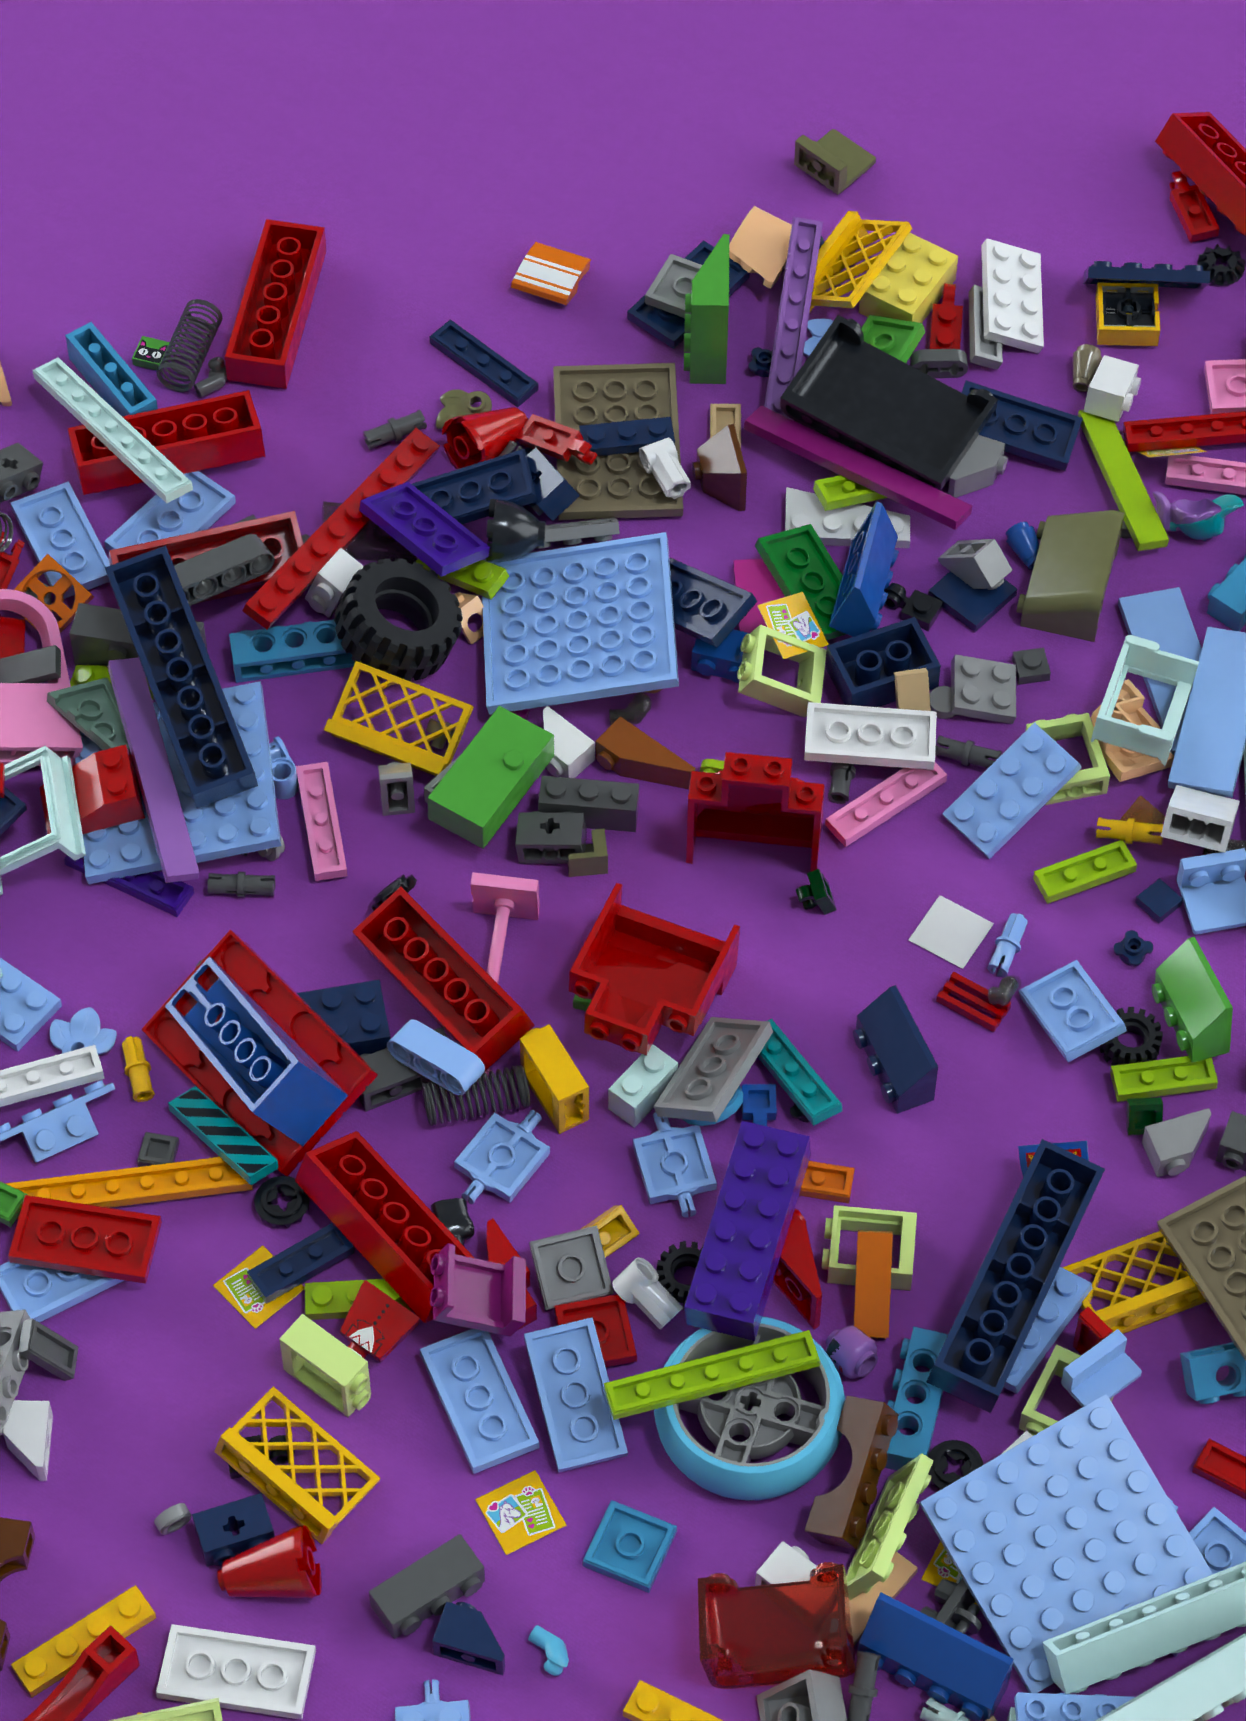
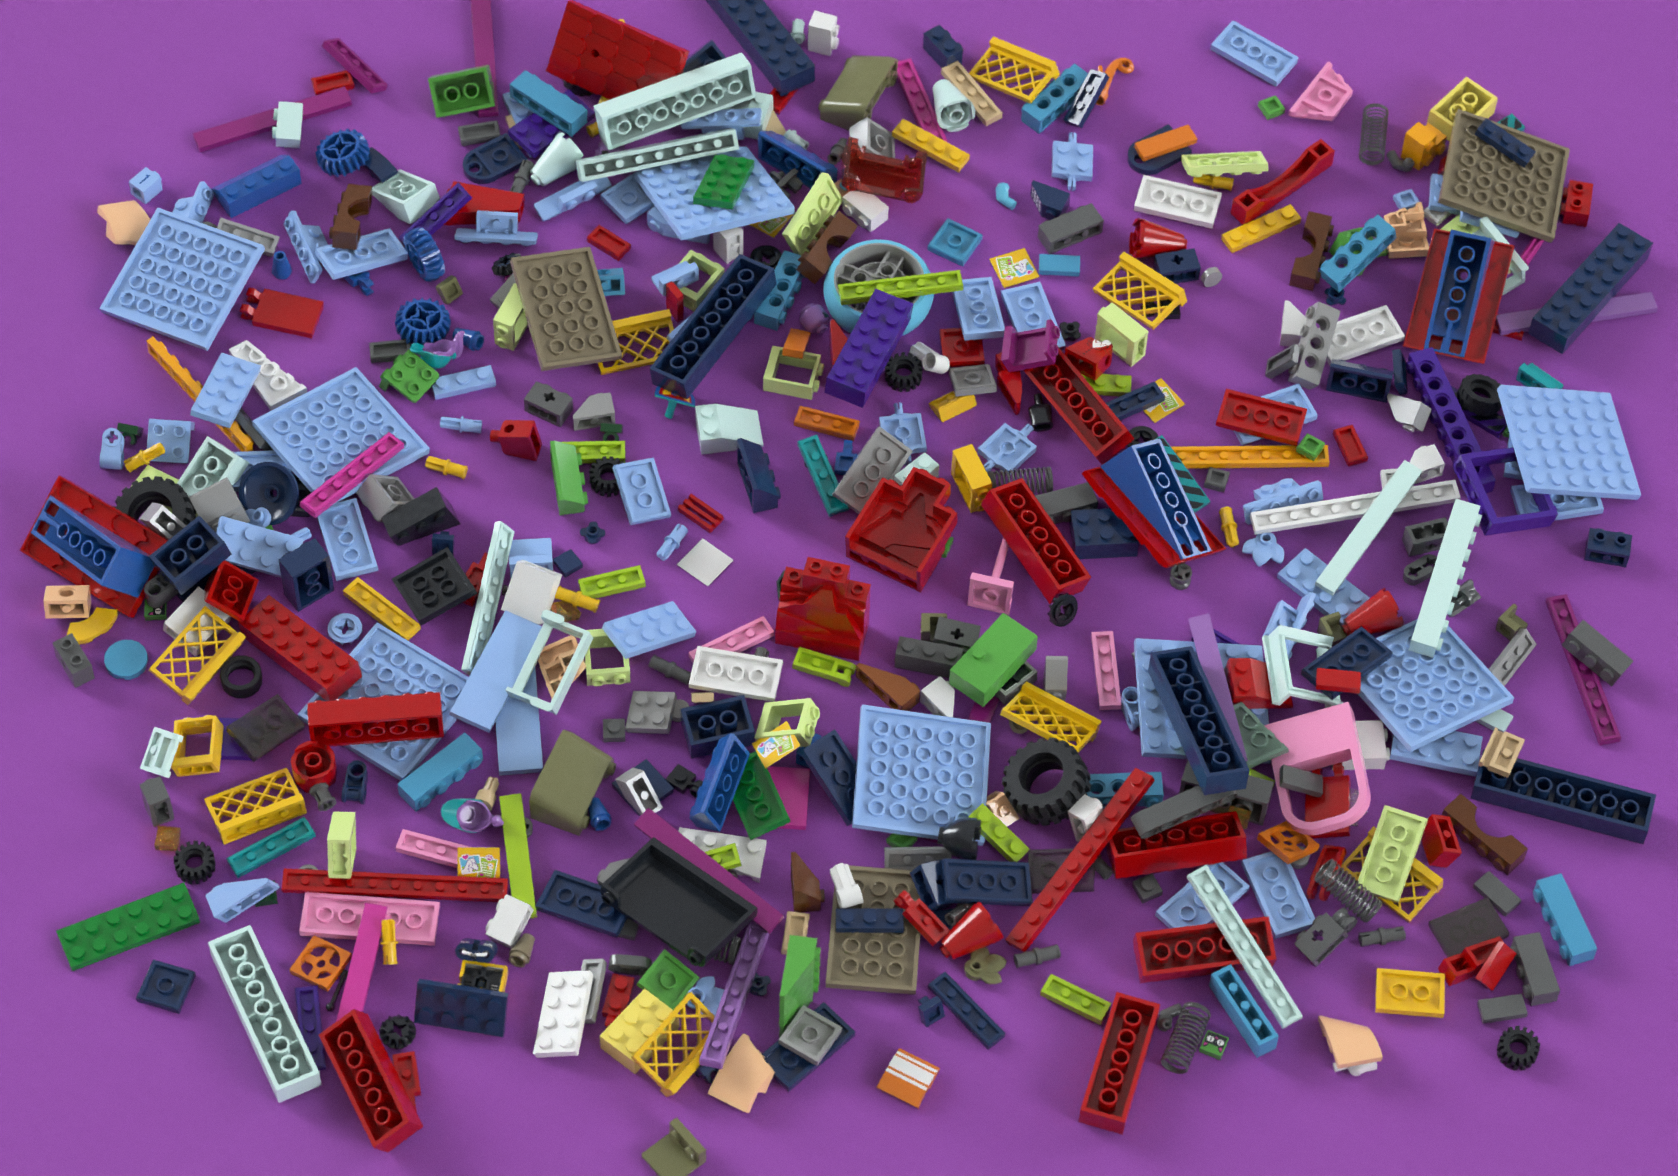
camera: 175 degrees left, 0 degrees up
(45, 913) = (1290, 617): none -> light blue bracket
(241, 884) = (1159, 634): dark grey pin -> none
(339, 383) = (1075, 999): none -> lime plate
(414, 1398) = (1070, 335): none -> black plate
(424, 528) = (1023, 841): dark purple plate -> none
(436, 1057) = (1045, 485): light blue beam -> none
(441, 1519) = (1059, 265): none -> dark azure tile
(532, 349) = (930, 1010): none -> dark blue tile
(959, 1140) = (722, 425): none -> light aqua slope
(1005, 991) = (677, 511): clear smoke arm -> none
(1055, 1546) = (723, 181): none -> green plate
(1146, 340) = (476, 950): none -> dark blue piece
(1187, 549) = (487, 794): none -> tan piece

